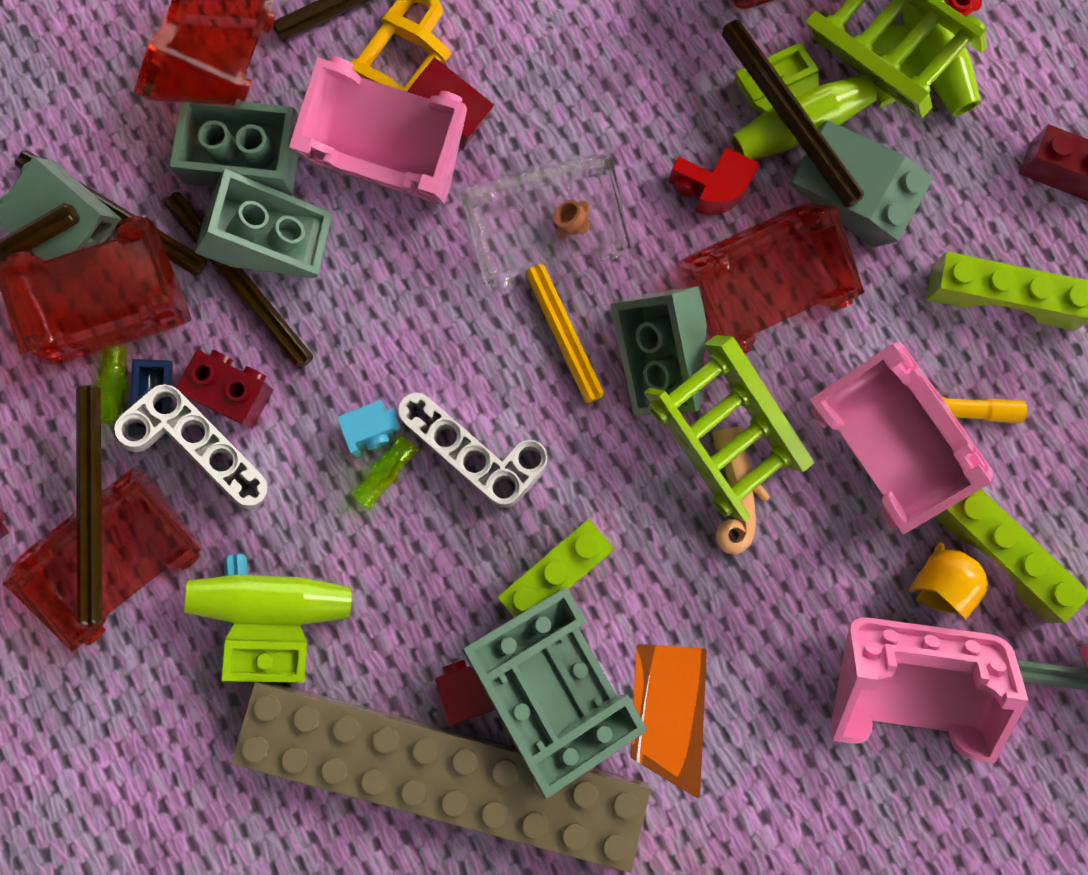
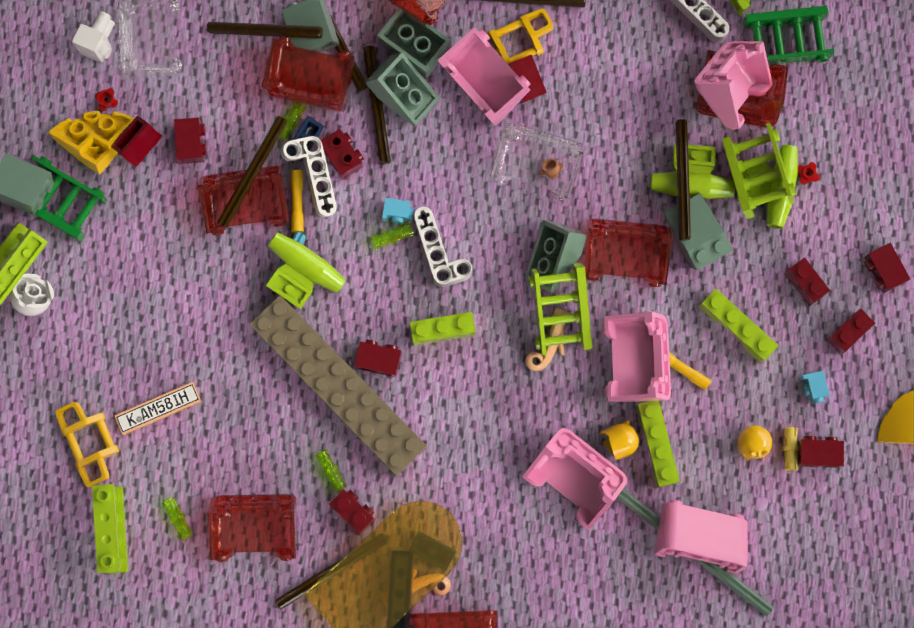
camera: 30 degrees right, 0 degrees up
(185, 486) = (297, 219): none -> yellow piece
(553, 693) = (409, 376): sand green slope -> none
(564, 333) = (515, 220): yellow axle -> none
(671, 705) = (457, 423): orange sticker -> none
(718, 189) = (631, 196): red brick -> none

